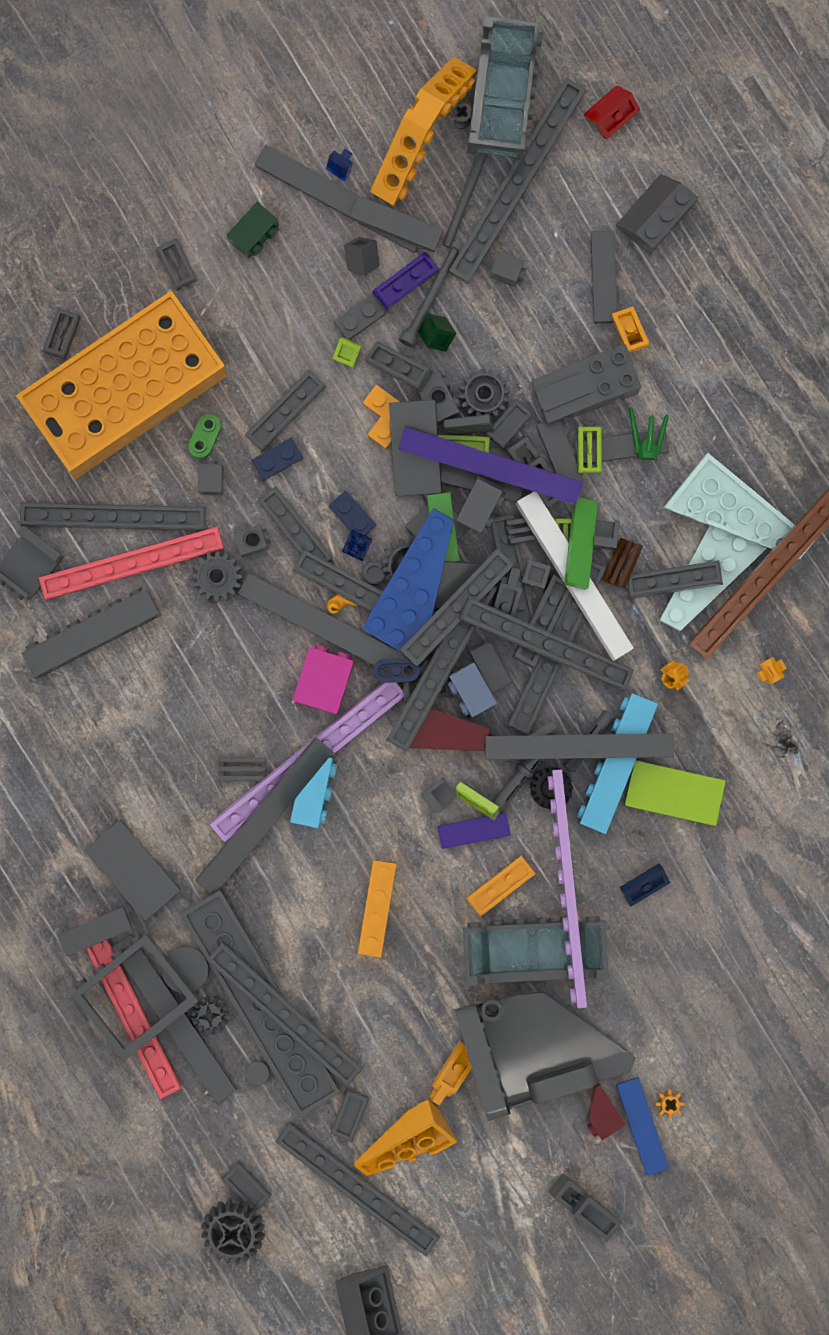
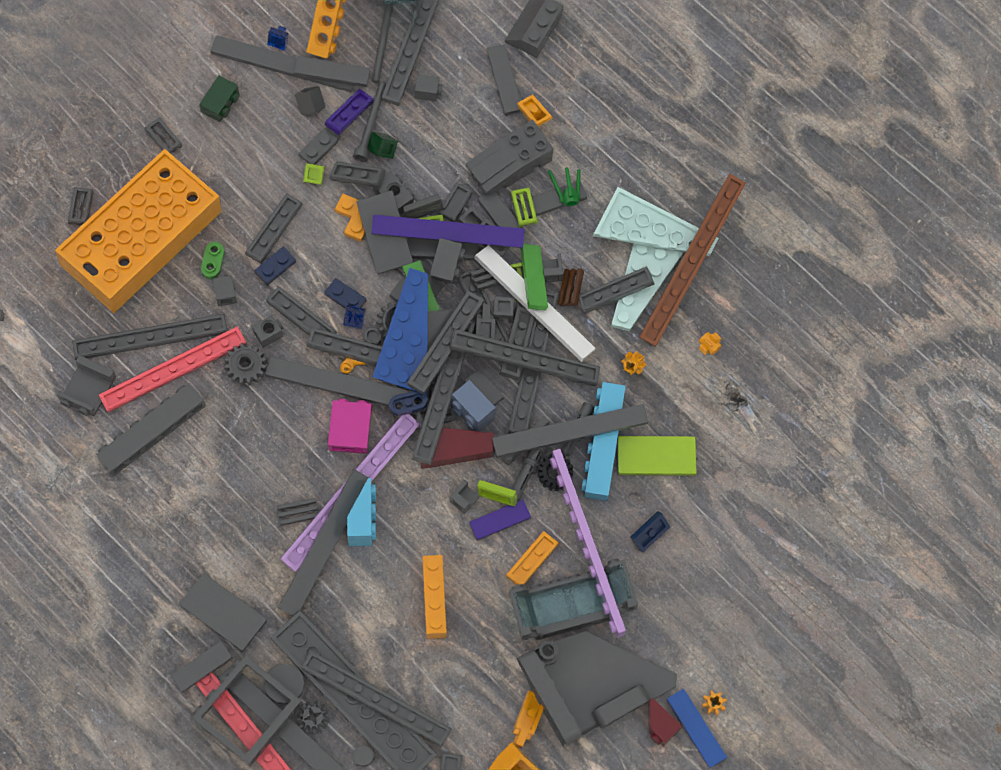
camera: 15 degrees left, 15 degrees down
(487, 382) = (426, 174): dark grey gear -> none

